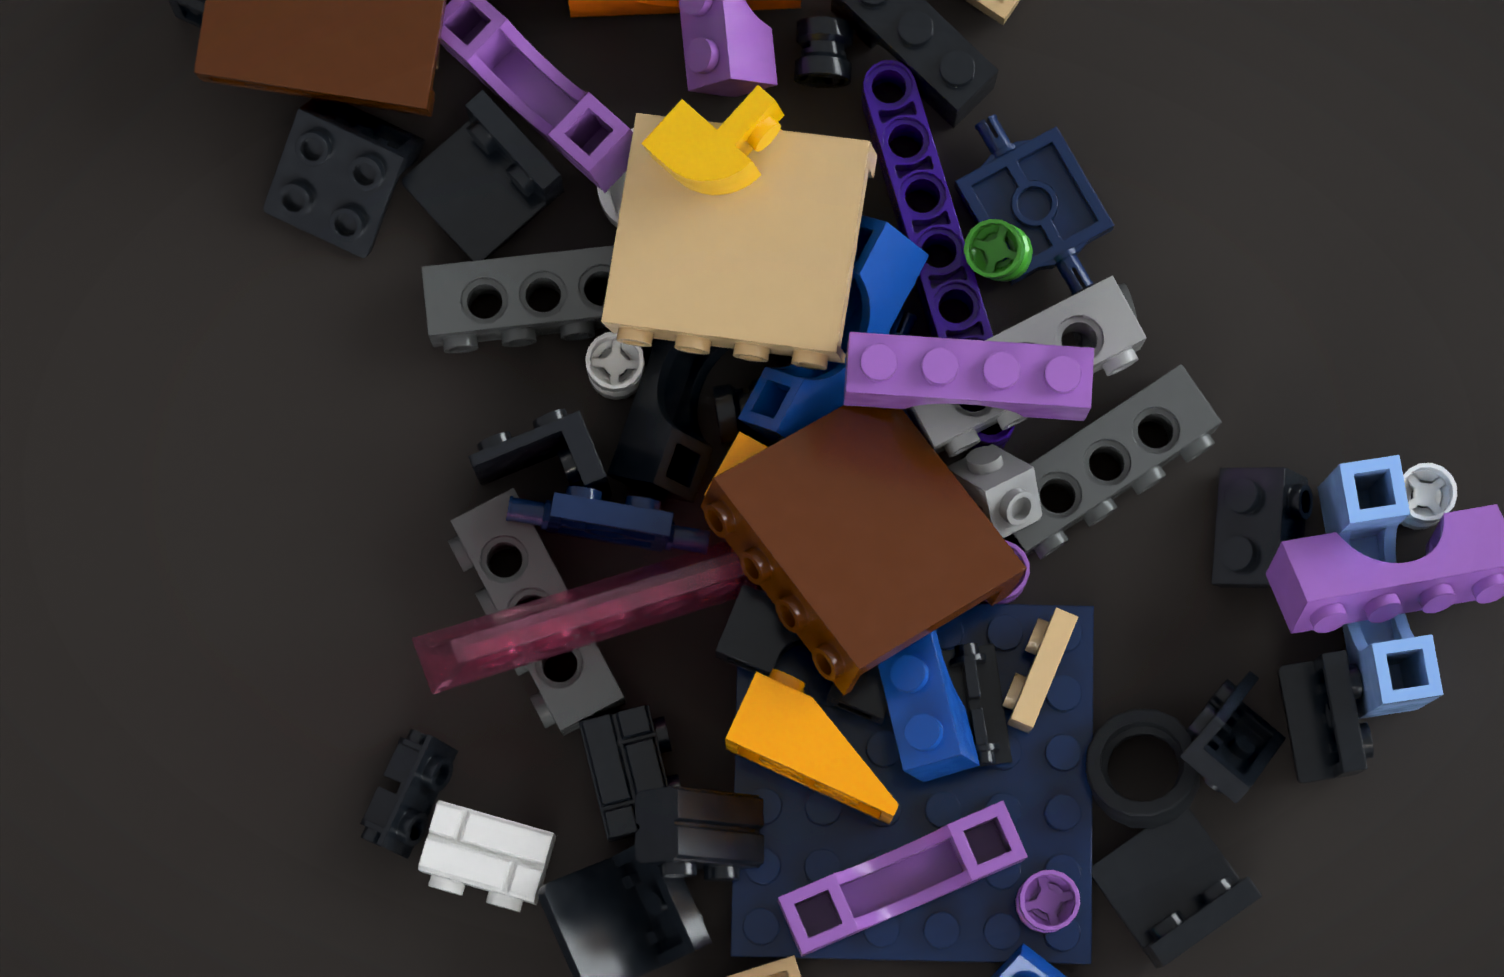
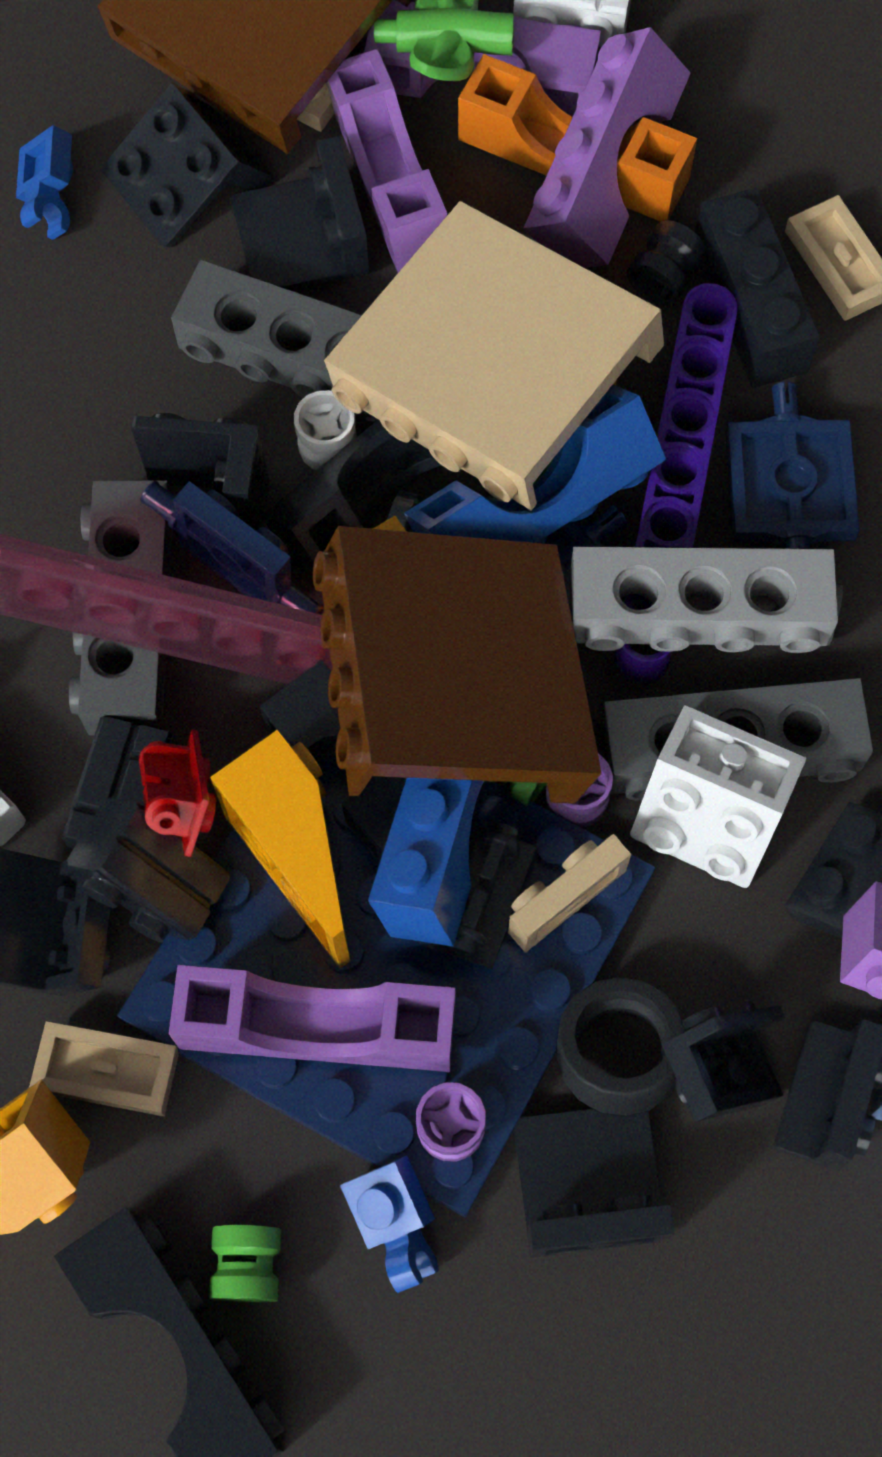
camera: 30 degrees right, 10 degrees down
(220, 250) = (42, 173): none -> blue plate
(692, 754) = (177, 790): none -> red hinge
(714, 158) = (510, 254): yellow brick -> none
(987, 247) = (728, 478): bright green wheel -> none
(995, 374) = (698, 588): medium lavender arch -> none
(1001, 486) = (621, 700): light grey bracket -> none
(1117, 525) = (716, 796): none -> white bracket

